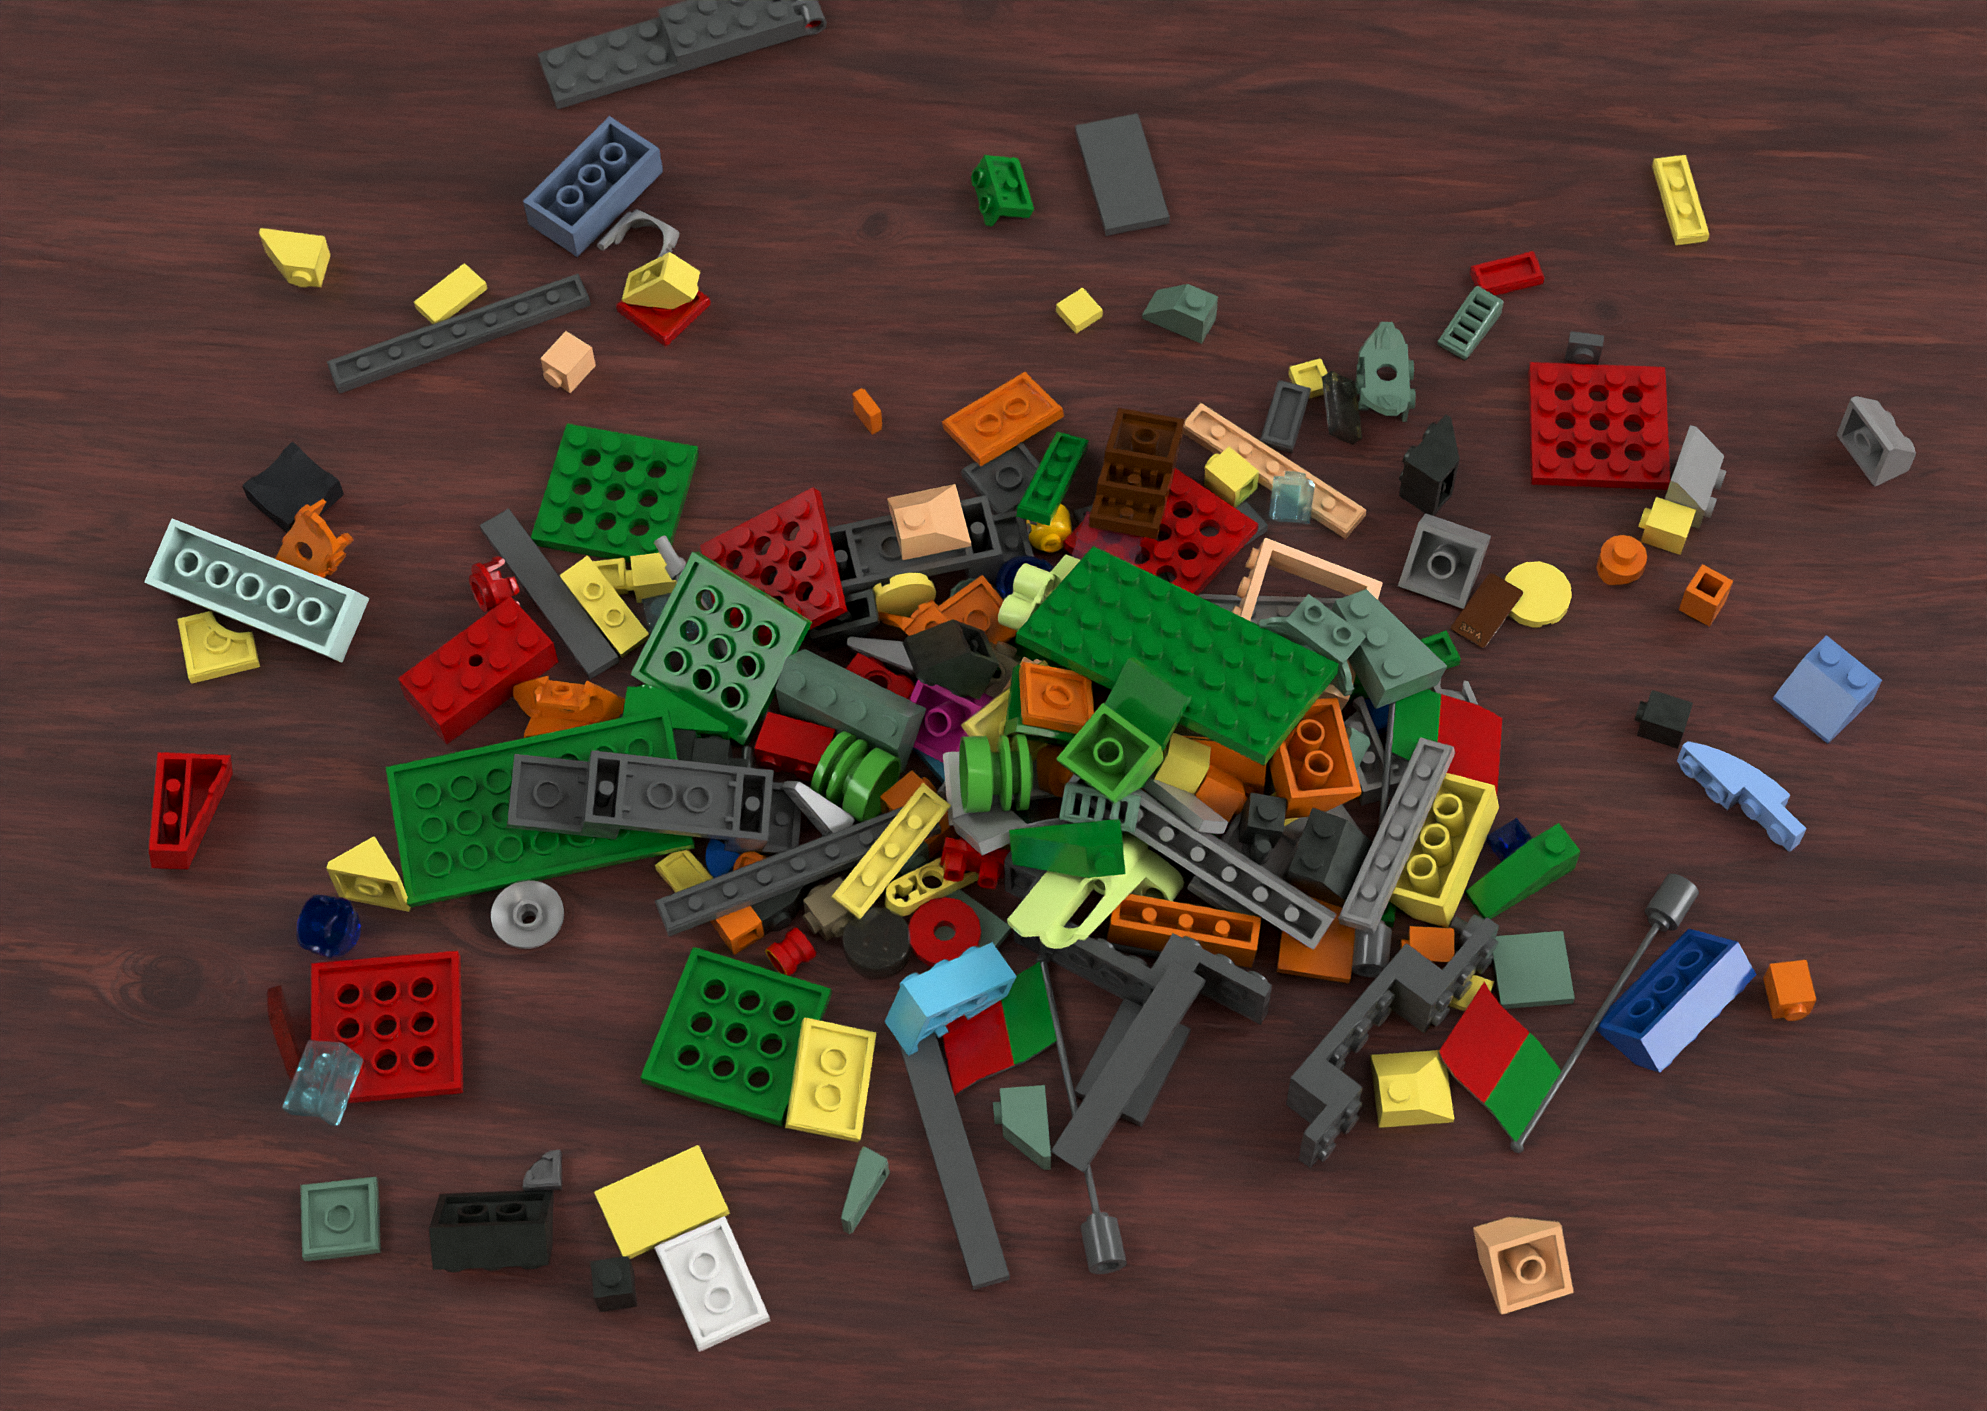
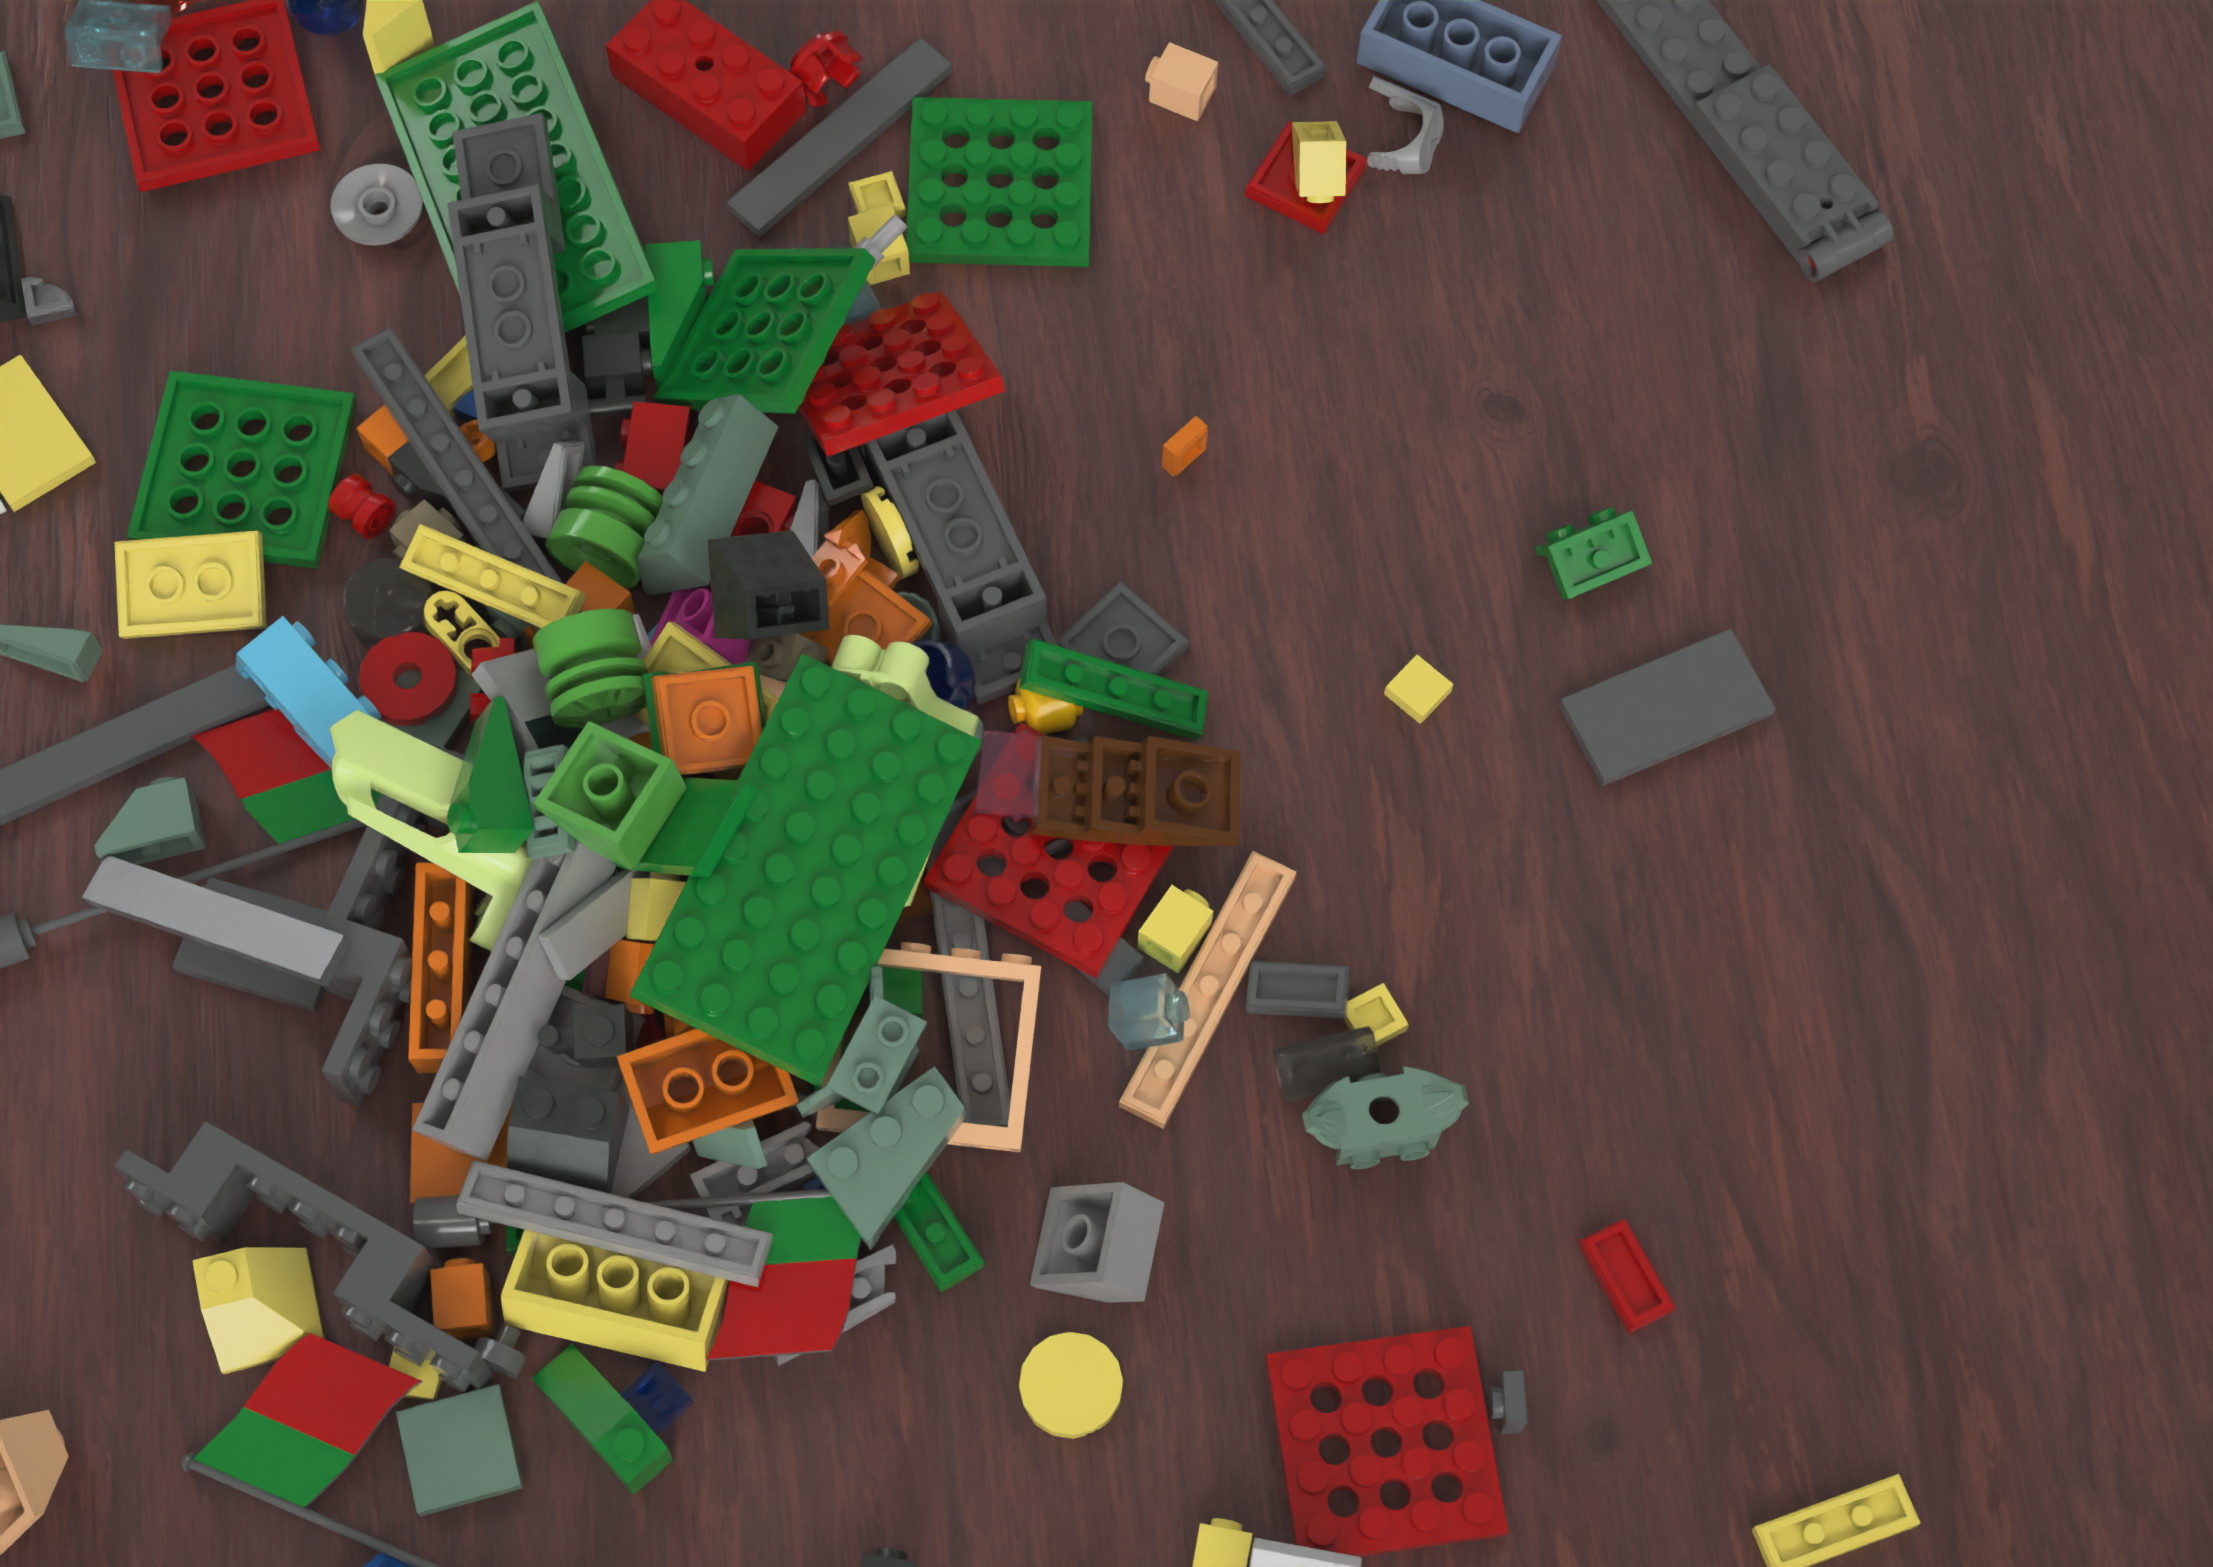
camera: 75 degrees right, 5 degrees up
(547, 699) = (658, 184): orange piece -> none
(604, 606) = (826, 196): light yellow plate -> none
(929, 522) = (982, 525): light nougat slope -> none
(1002, 419) = (1211, 618): orange tile -> none
(1183, 311) = (1442, 824): sand green slope -> none
(1431, 468) = (1237, 1199): pearl dark grey slope -> none
(1480, 304) = (1526, 1214): sand green slope -> none
(1487, 610) = (1029, 1316): reddish brown sticker -> none
(1621, 560) = (1146, 1502): orange piece -> none

